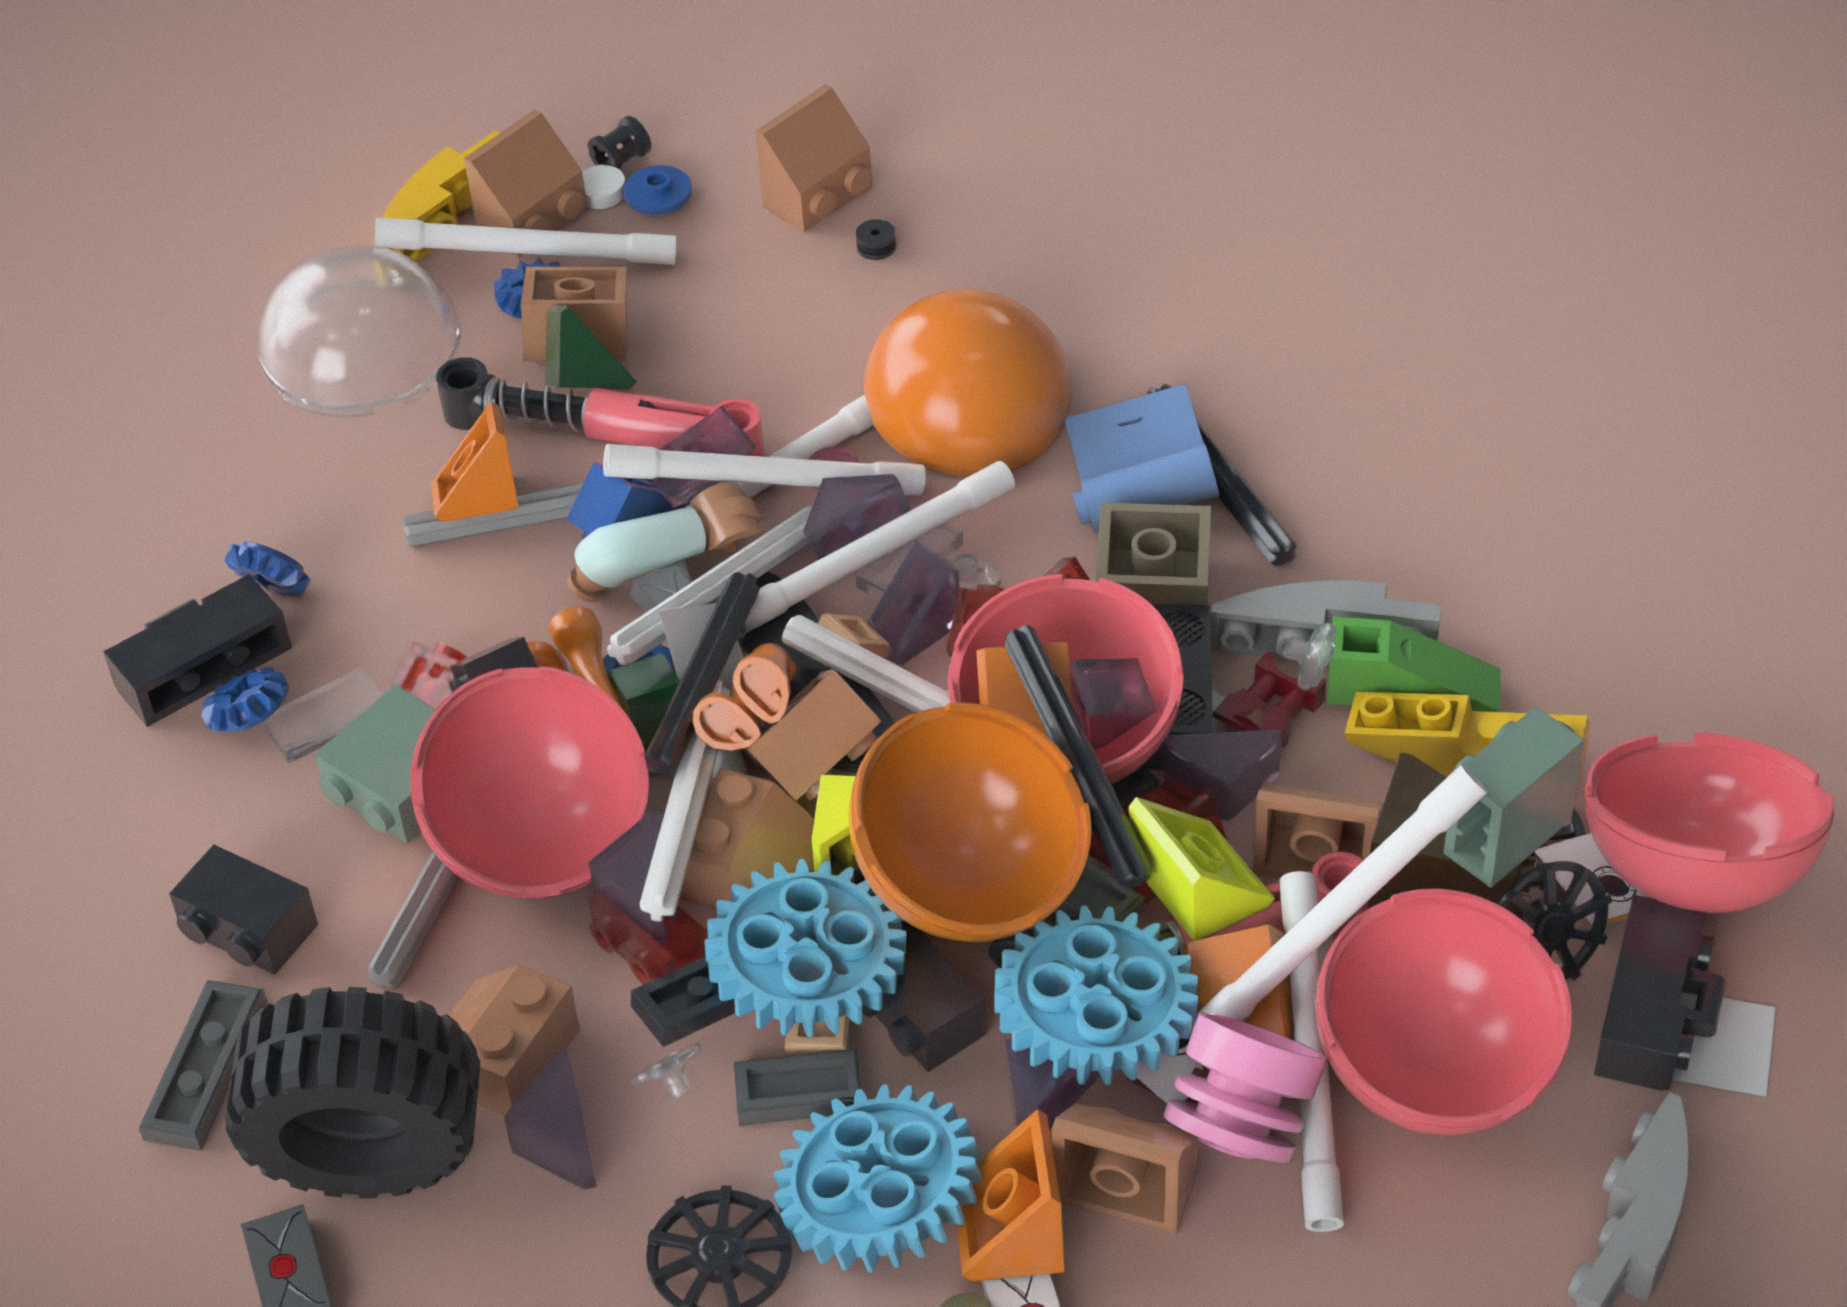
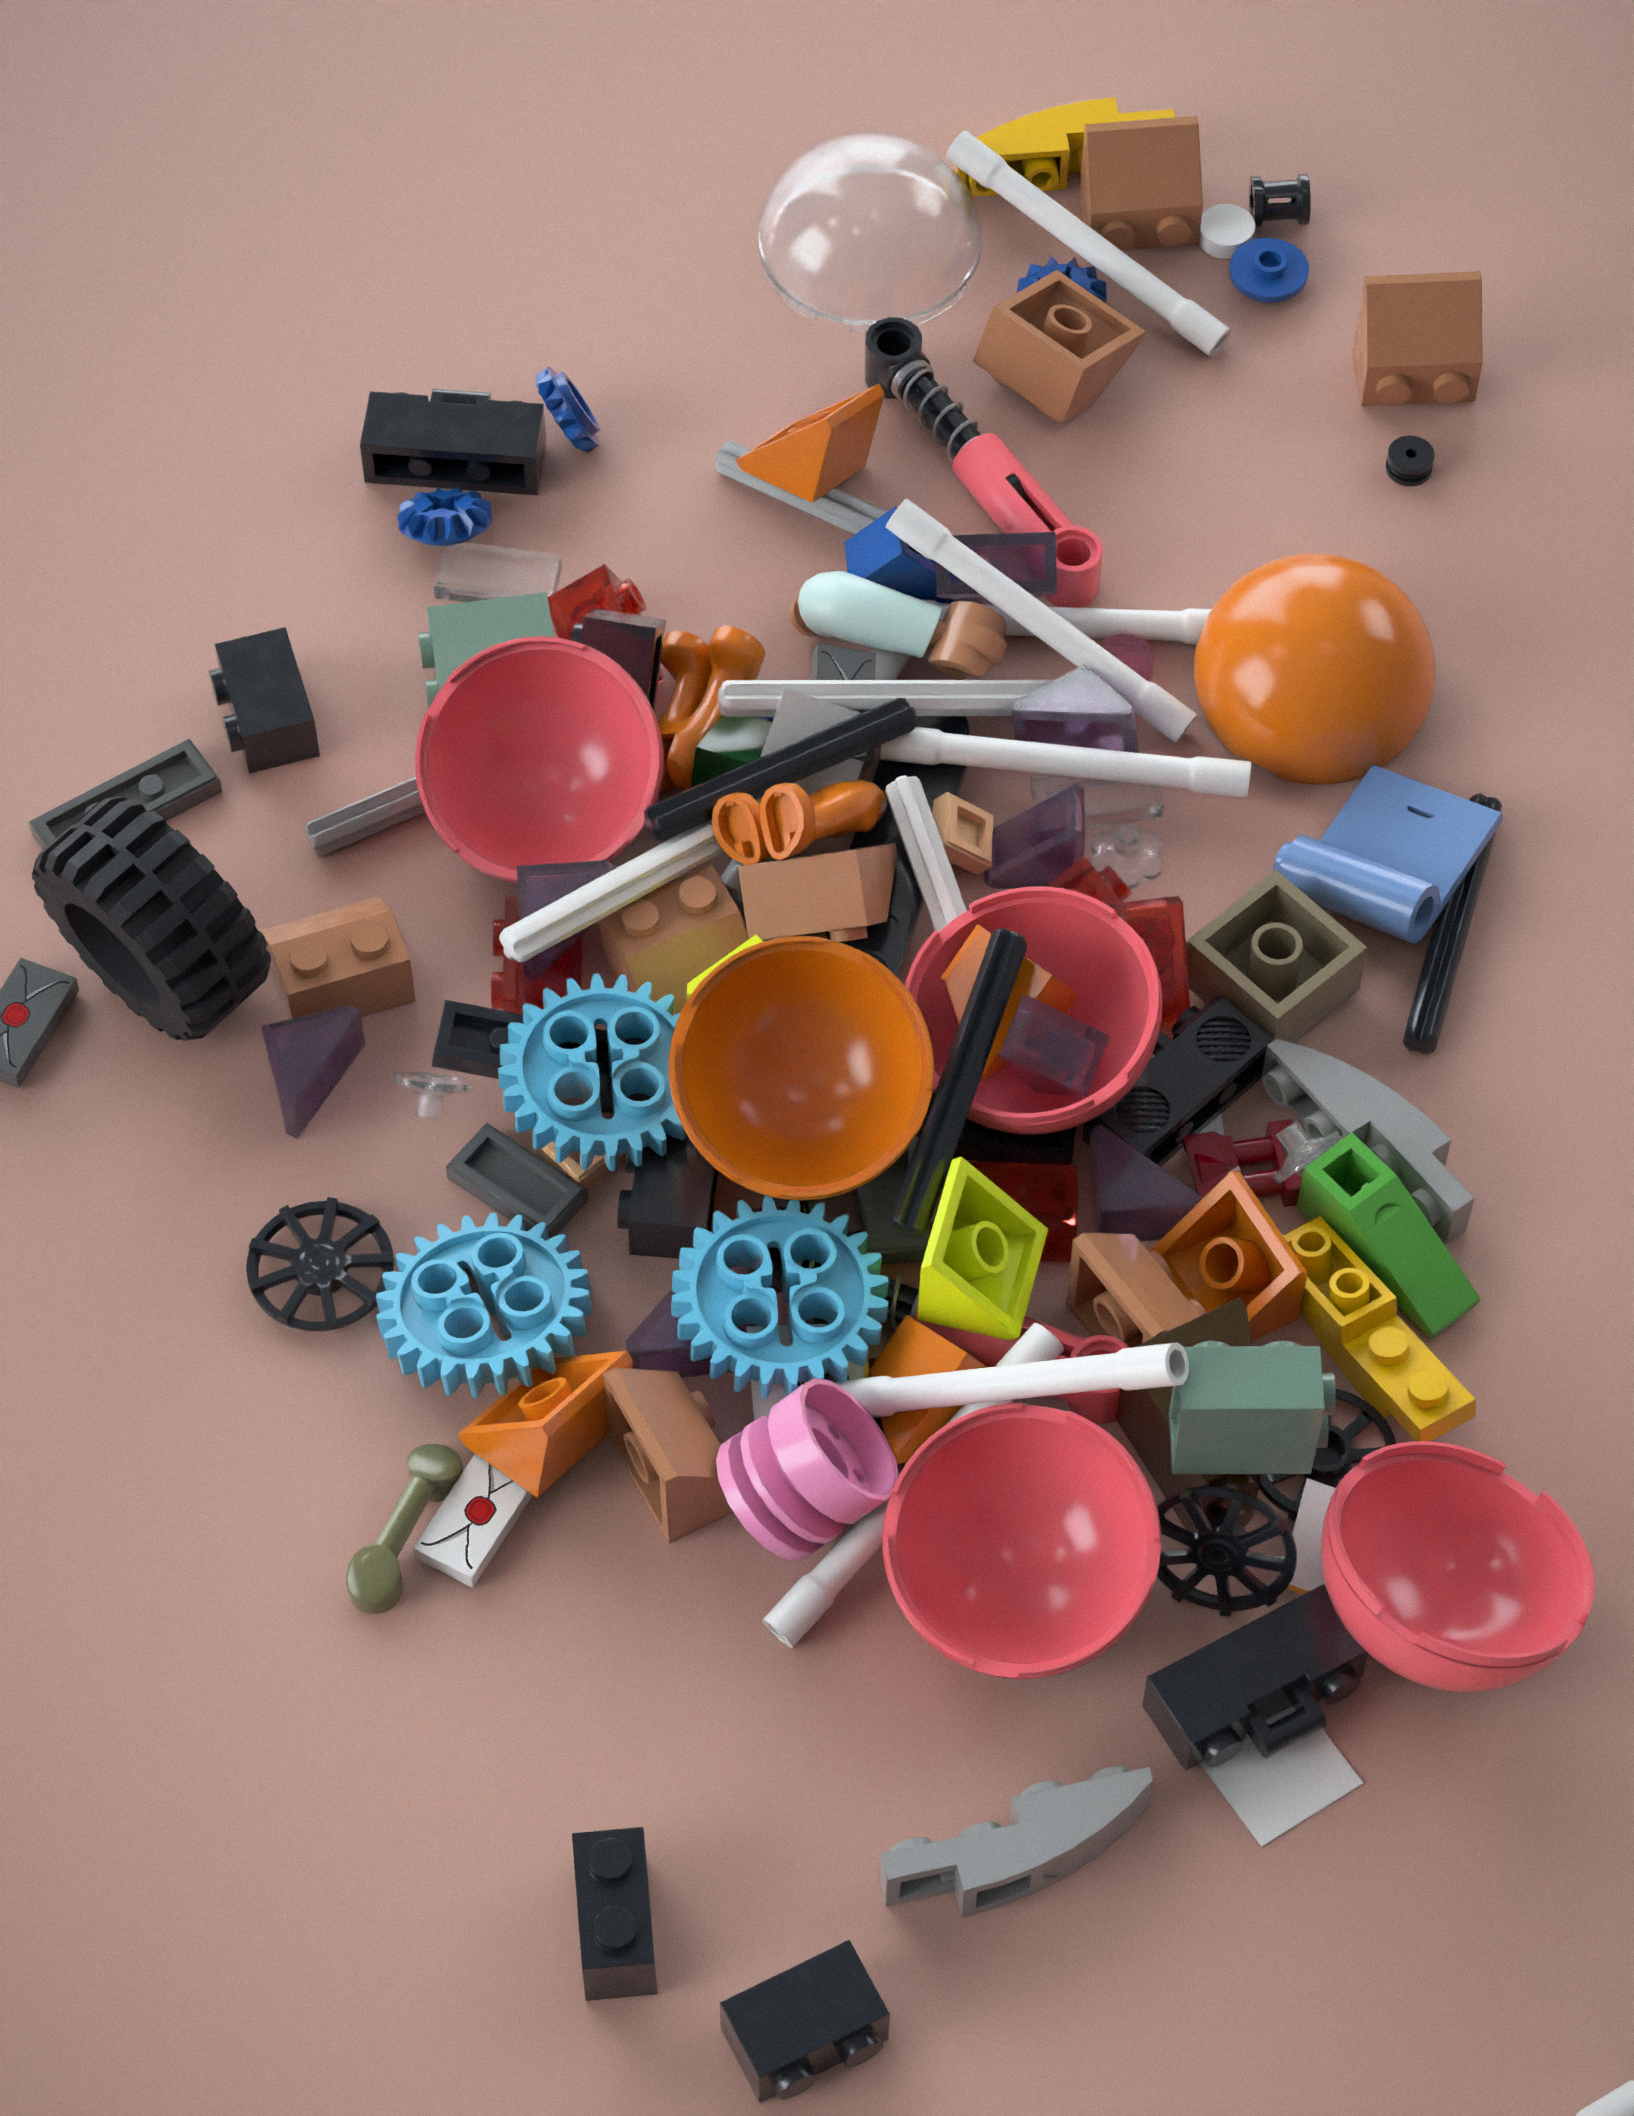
camera: 40 degrees right, 10 degrees up
(578, 357) = (1007, 397): dark green slope -> none
(1339, 747) = (1235, 1251): none -> orange slope

